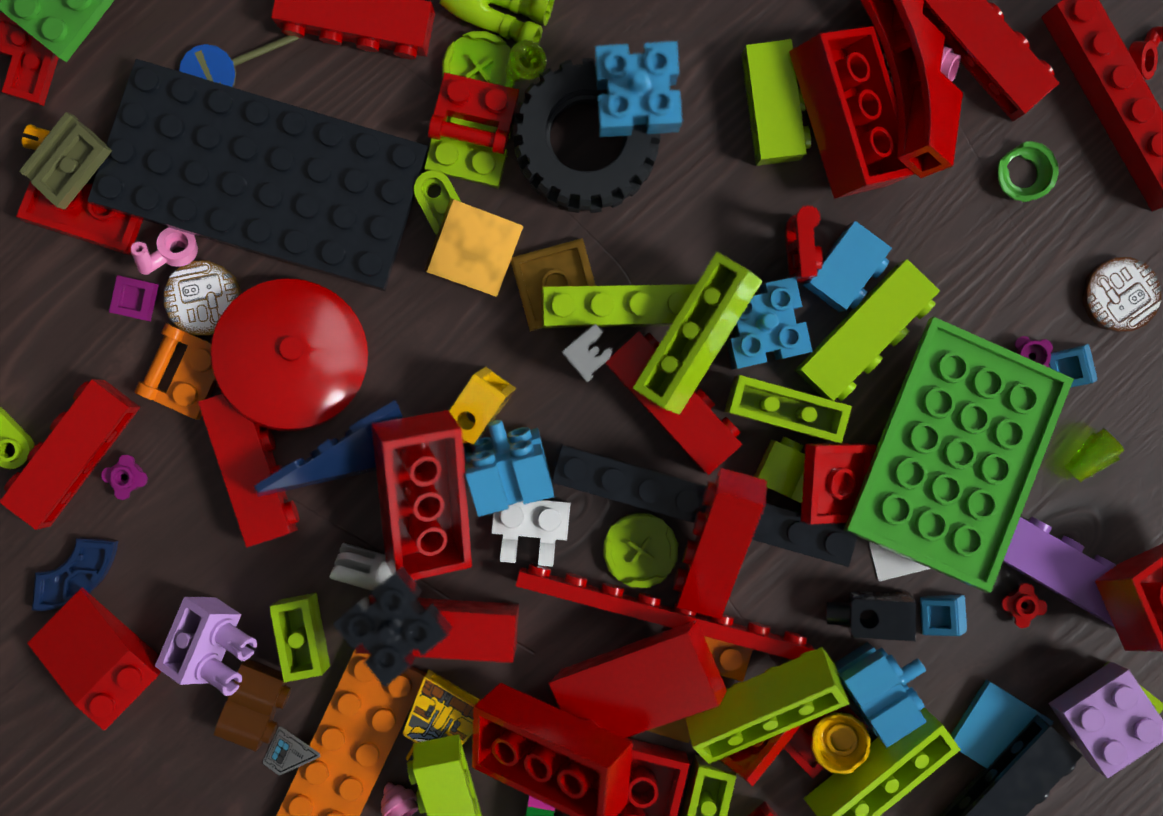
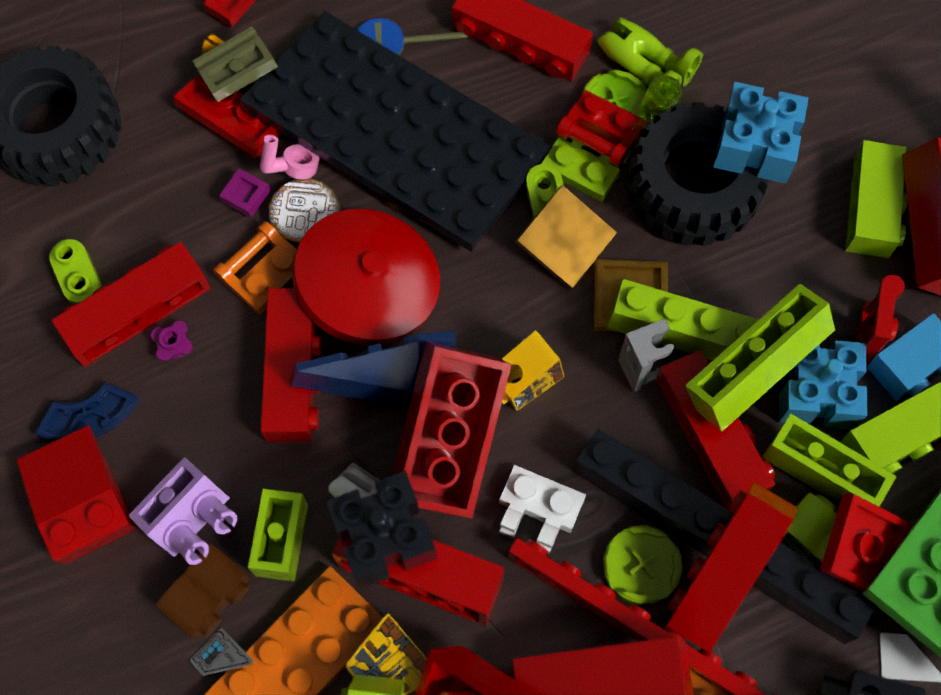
camera: 15 degrees right, 20 degrees down
(507, 469) = (539, 431): dark azure brick -> none

